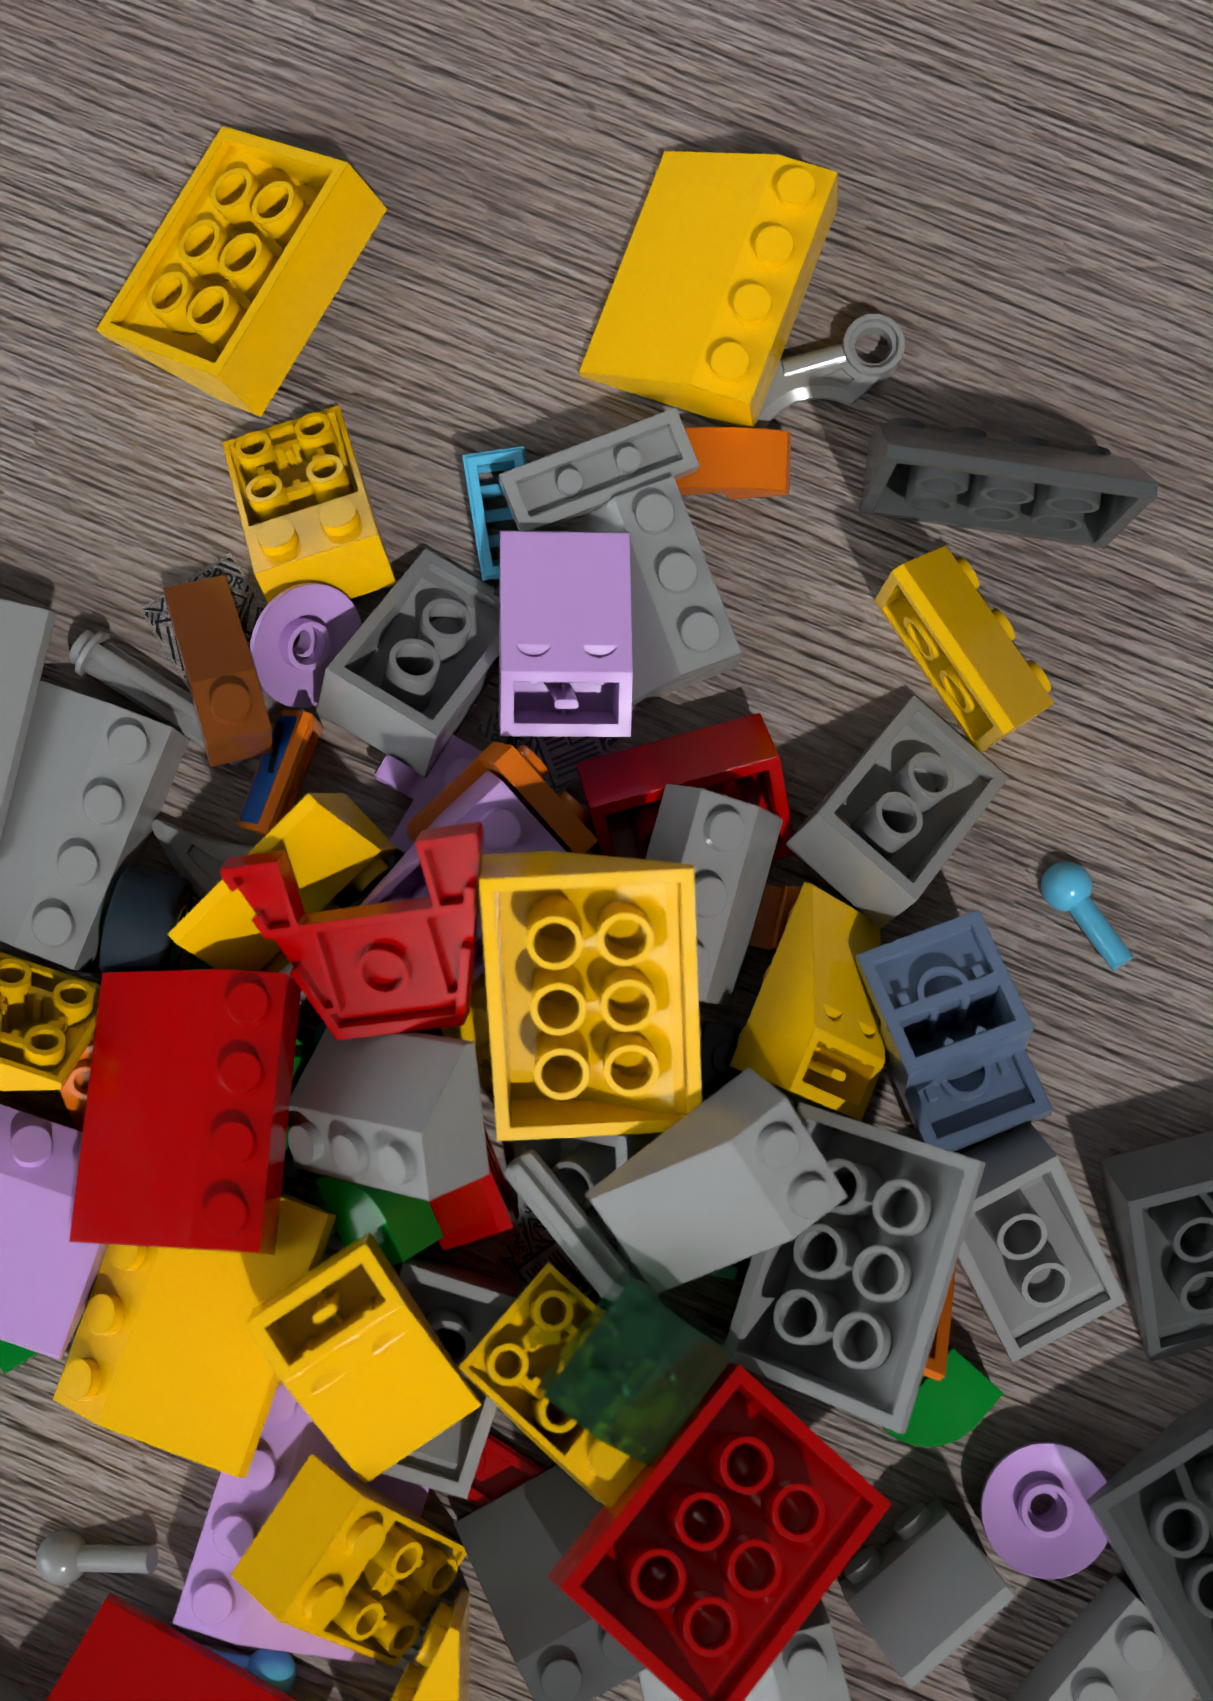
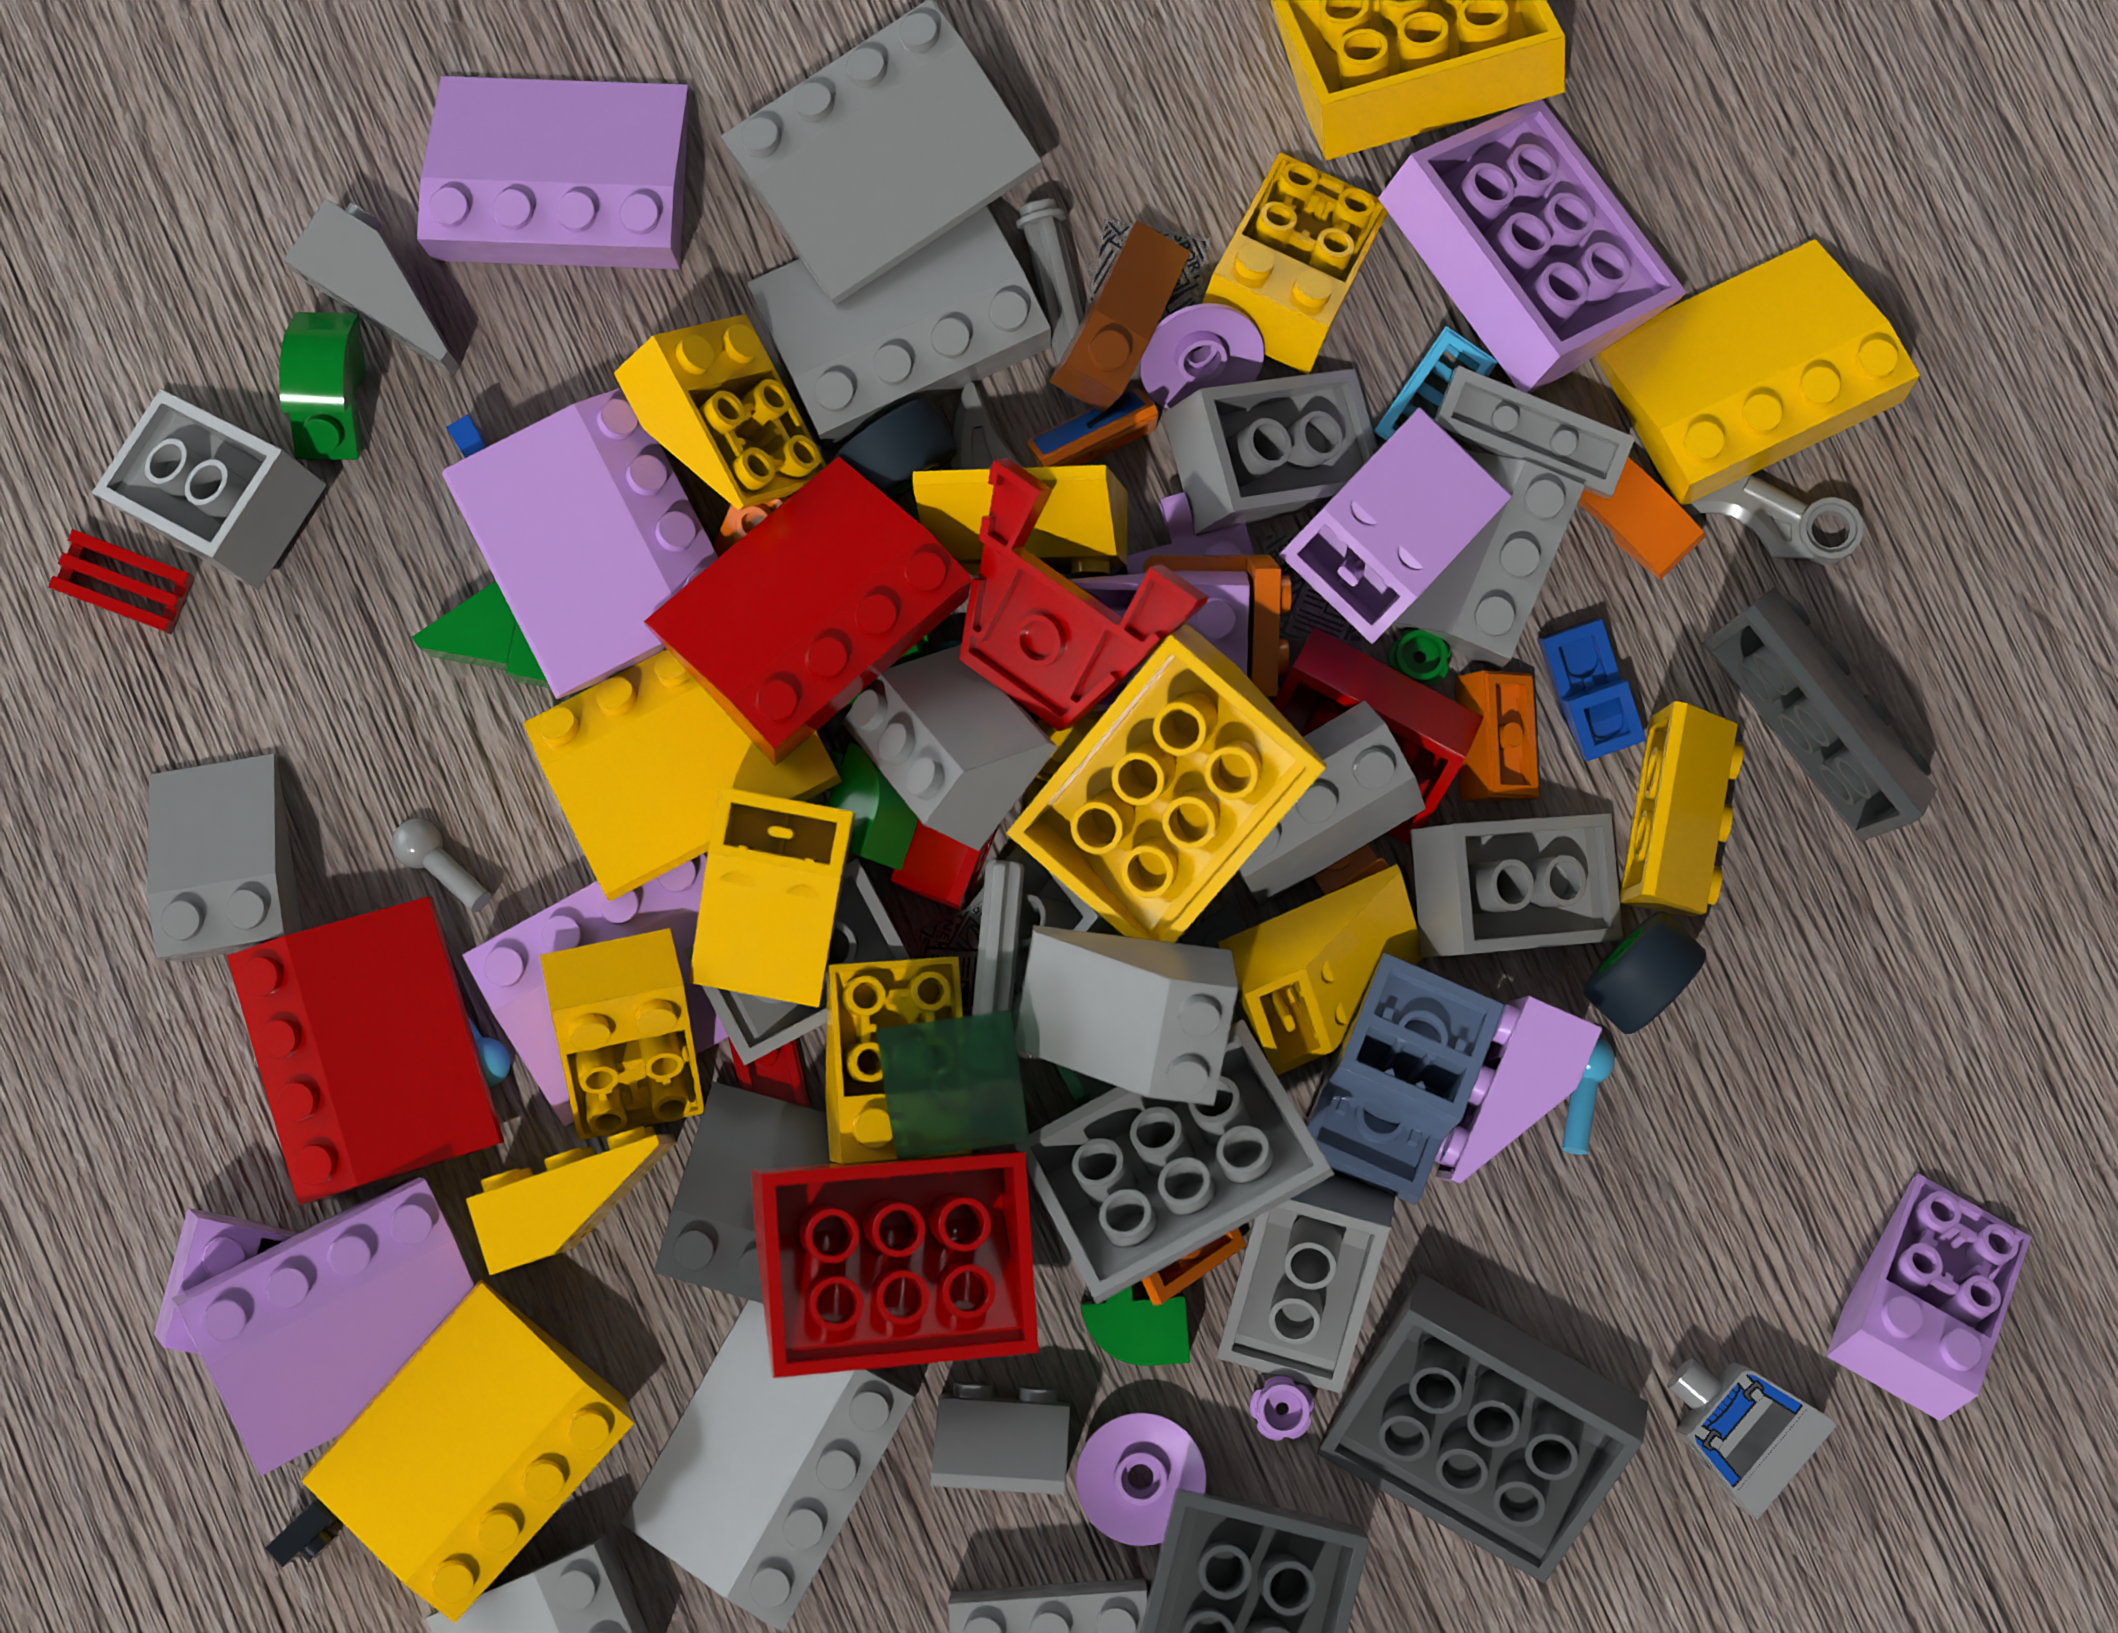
camera: 45 degrees right, 0 degrees up
(464, 341) = (1529, 243): none -> lavender slope
(675, 696) = (1433, 647): none -> green plate
(796, 720) = (1504, 751): none -> orange slope
(815, 620) = (1590, 689): none -> blue slope
(1047, 948) = (1526, 1073): none -> lavender slope
(1052, 787) = (1645, 973): none -> black wheel
(1112, 1357) = (1264, 1404): none -> lavender plate

